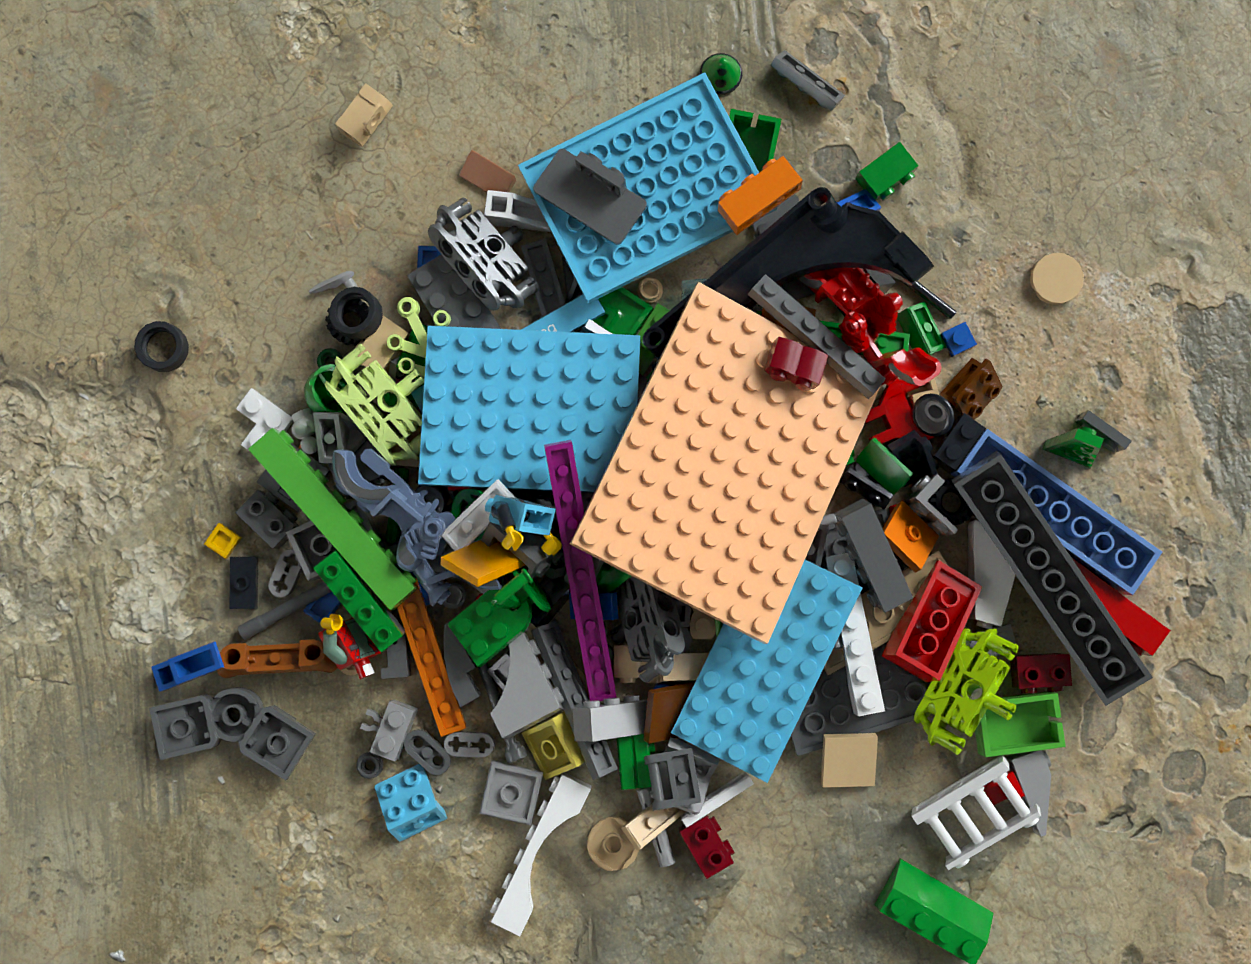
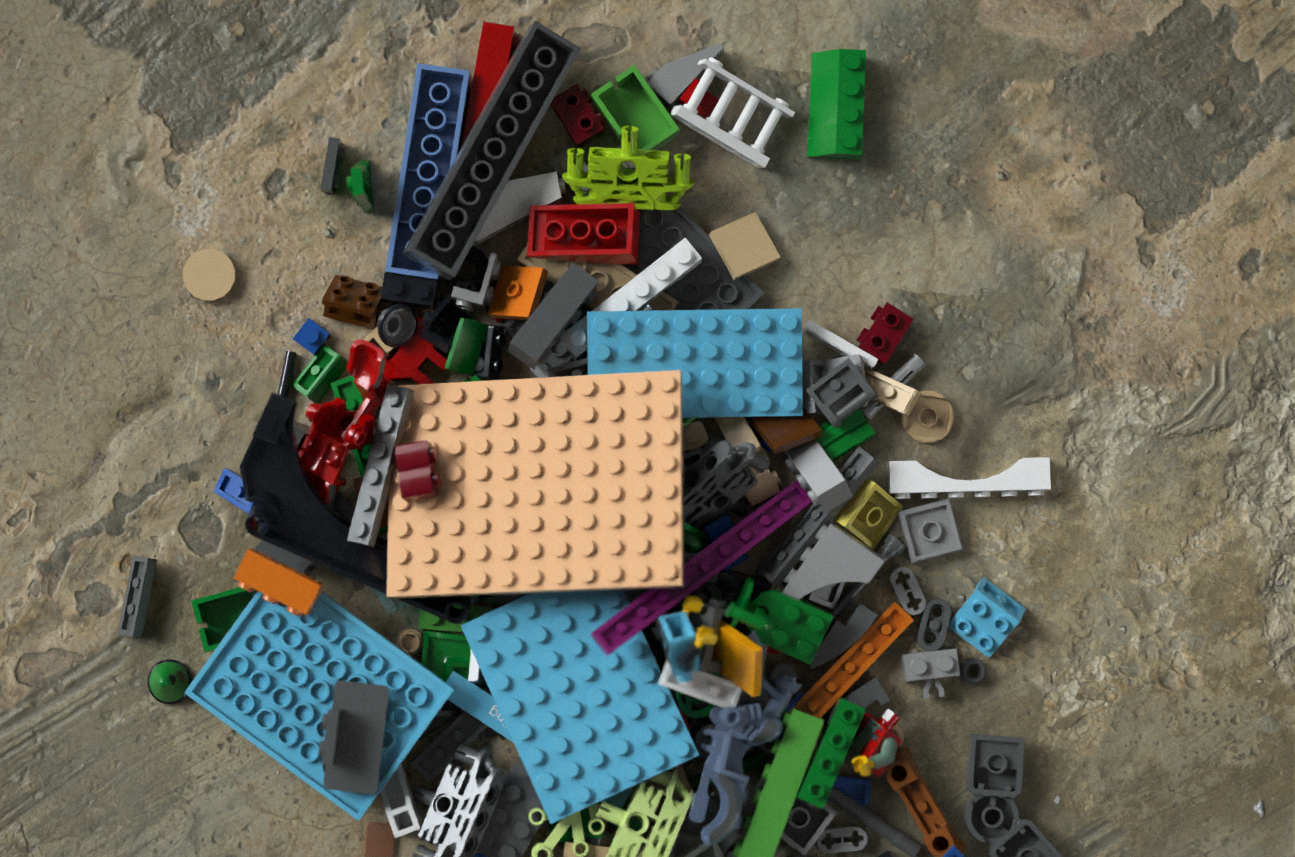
camera: 115 degrees left, 0 degrees up
(887, 172) = (188, 479): green brick -> none

